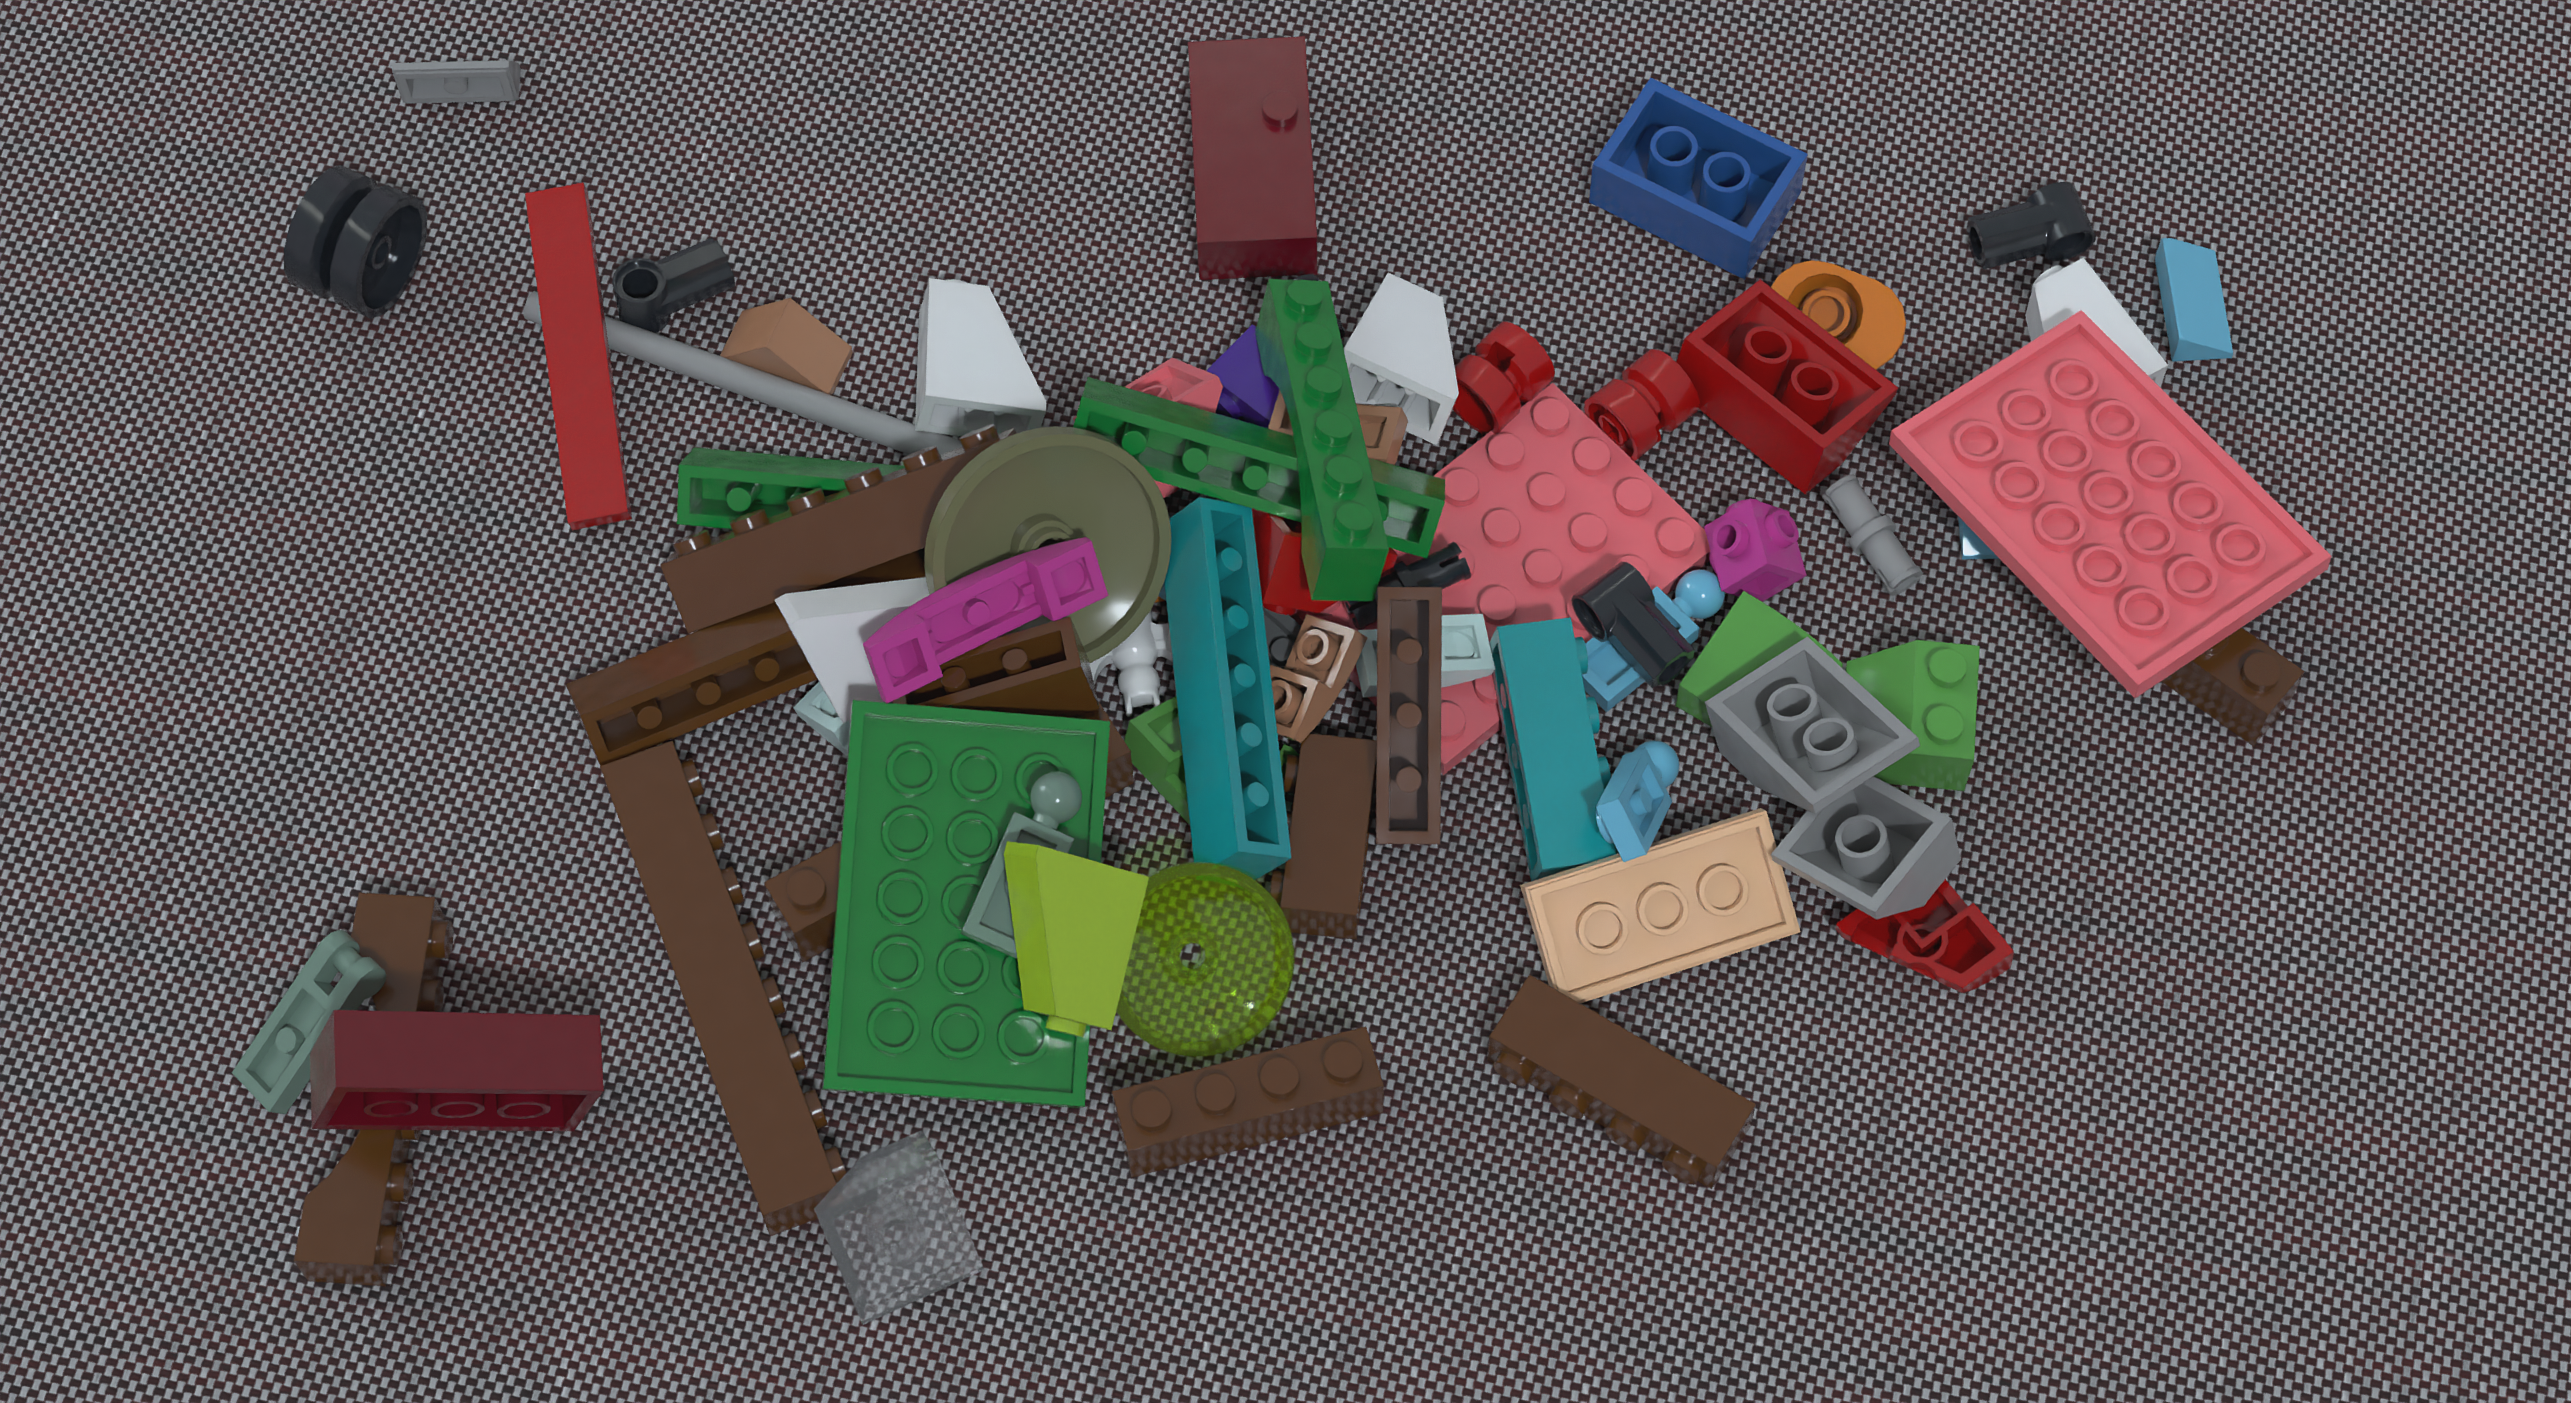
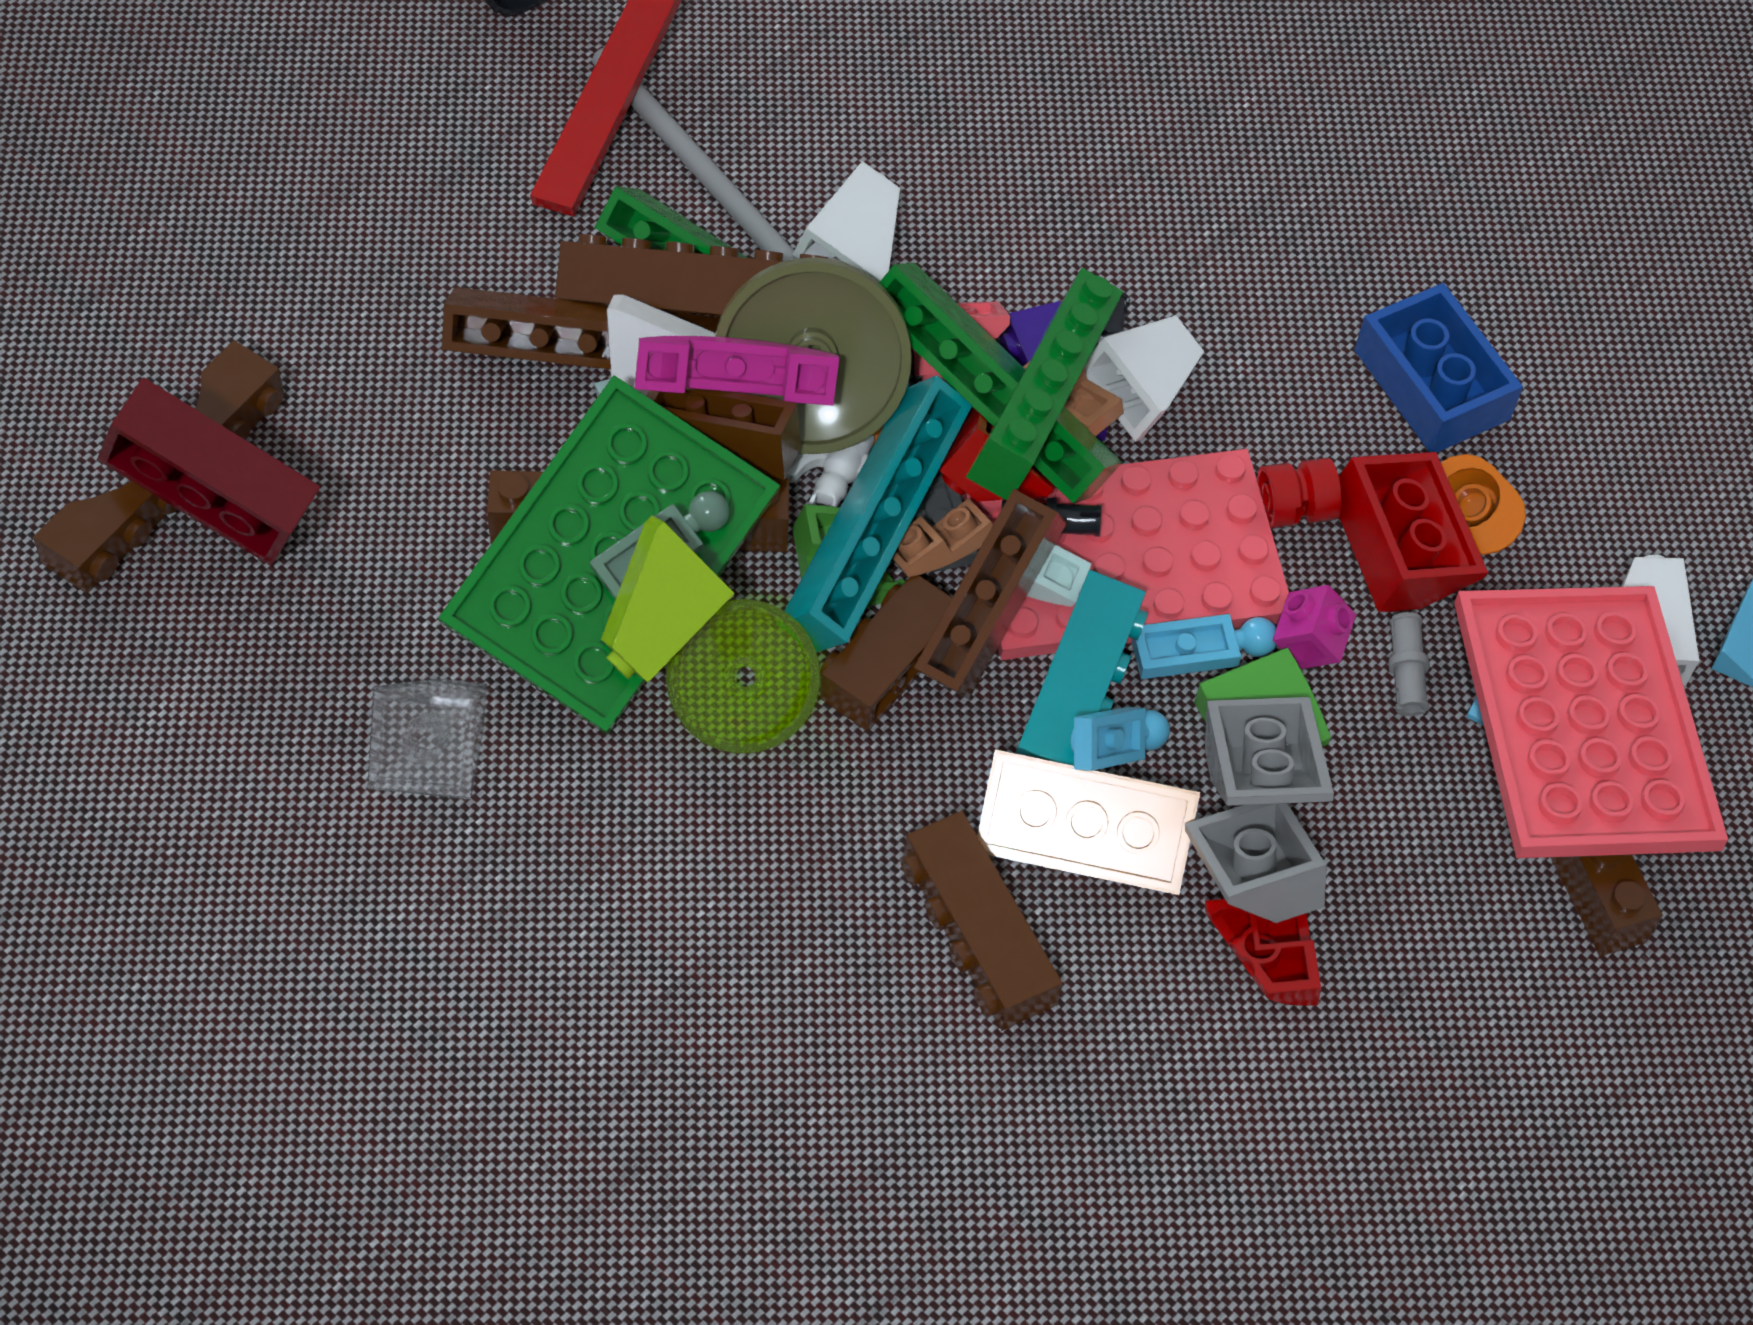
camera: 25 degrees right, 5 degrees down
(279, 1057) = (180, 376): sand green plate -> none
(671, 283) = (681, 85): black piece -> none
(721, 985) = (424, 523): reddish brown brick -> none
(789, 344) = (749, 164): nougat slope -> none
(1248, 1101) = (715, 788): reddish brown brick -> none
(1252, 158) = (1136, 201): dark red brick -> none
(1502, 373) = (1215, 423): red wheel -> none
(1624, 611) = (1191, 615): black piece -> none
(1934, 696) = (1372, 795): bright green slope -> none
(2046, 224) = (1676, 528): black piece -> none

